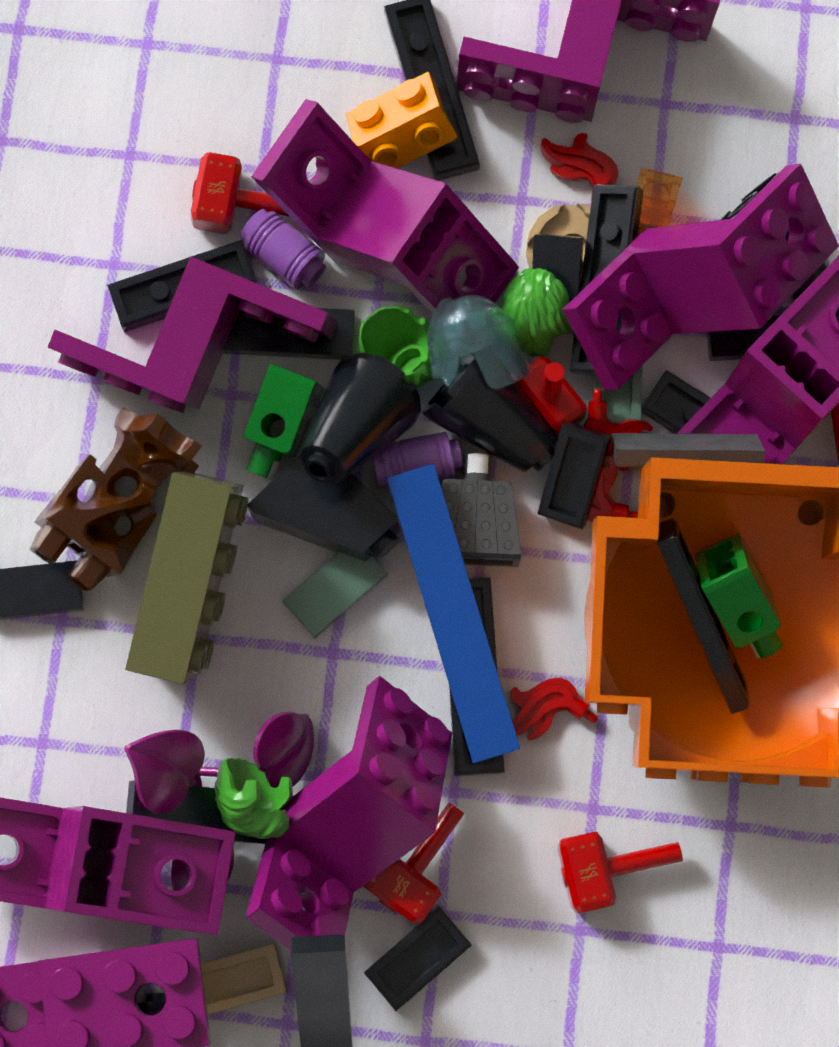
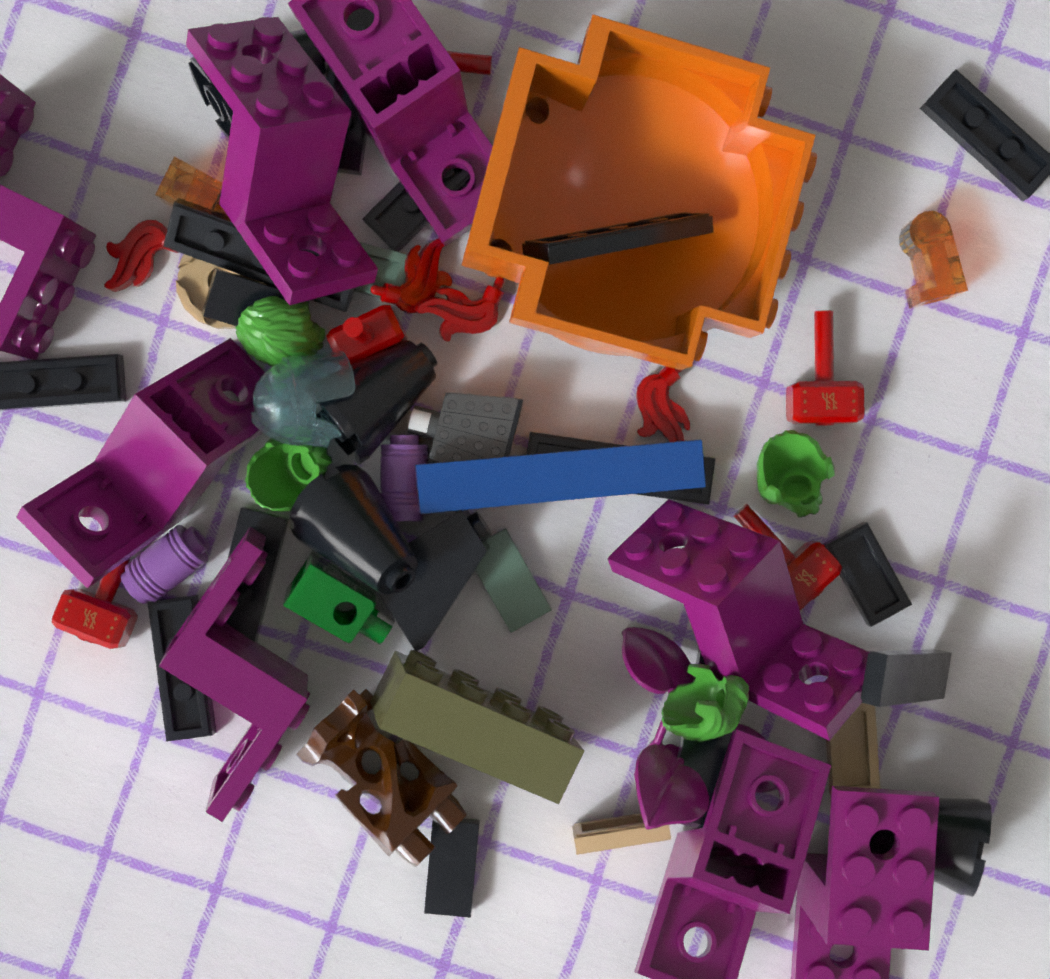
camera: 70 degrees left, 10 degrees up
(100, 752) = (616, 833): none -> tan tile
(402, 123) = (60, 422): light orange bracket -> none
(507, 851) = (792, 472): none -> bright green hair
(574, 474) = (449, 330): black tile -> none
(638, 448) = (452, 214): dark grey tile -> none
(740, 596) = (615, 193): green torso -> none
(776, 947) = (933, 258): none -> clear orange leg

